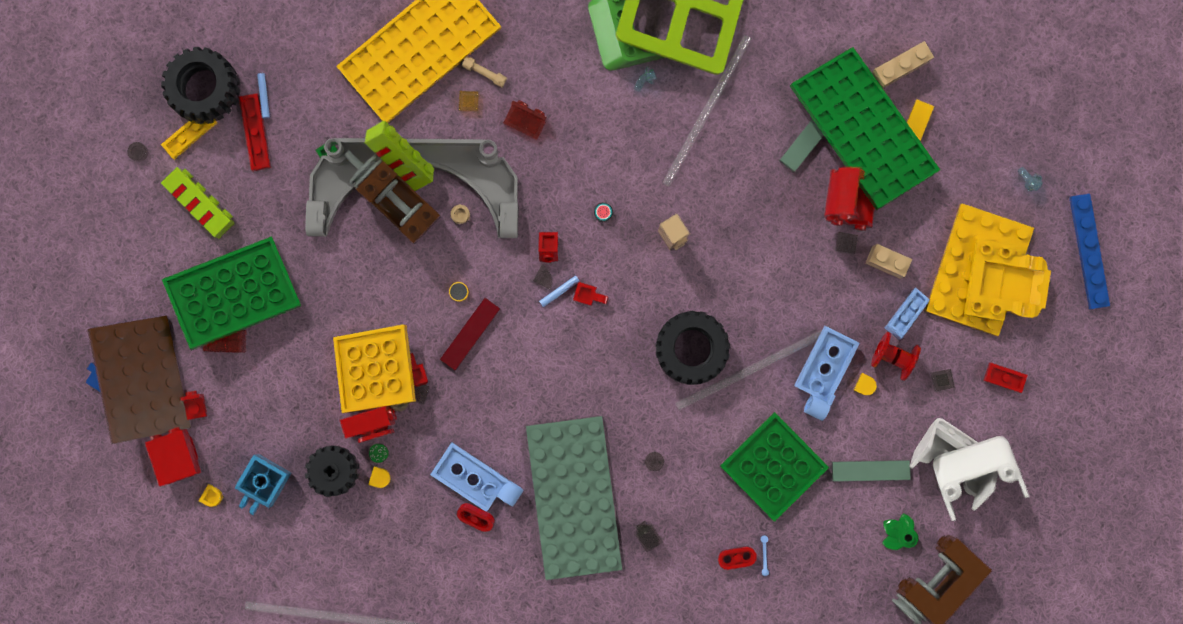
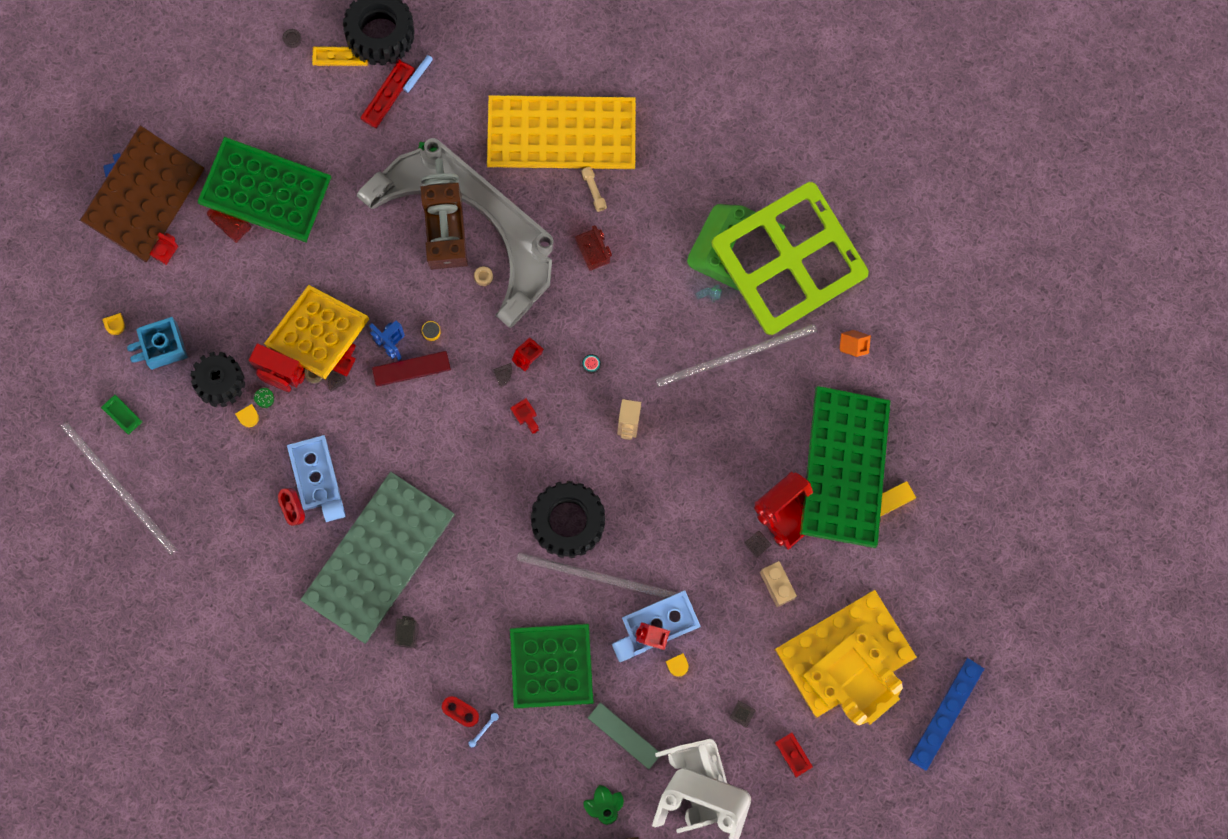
camera: 35 degrees right, 10 degrees down
(173, 456) = (114, 270): red brick -> none
(197, 202) = (301, 108): lime brick -> none
(282, 559) = (121, 414): none -> green tile
(399, 155) = (475, 192): lime brick -> none
(433, 320) = (389, 338): none -> blue bracket
(468, 101) = (563, 200): clear yellow tile -> none
(559, 291) = (506, 394): light blue piece -> none
(654, 461) = (463, 583): clear smoke tile -> none
(788, 24) = (855, 343): none -> orange panel
(802, 146) = (785, 442): sand green tile -> none
(831, 381) = (652, 636): none -> red bracket
(896, 356) = (719, 660): red hose -> none
(903, 64) = (917, 445): tan brick -> none
(907, 314) = (757, 636): light blue tile -> none
(1032, 182) = (945, 620): clear light blue plate -> none

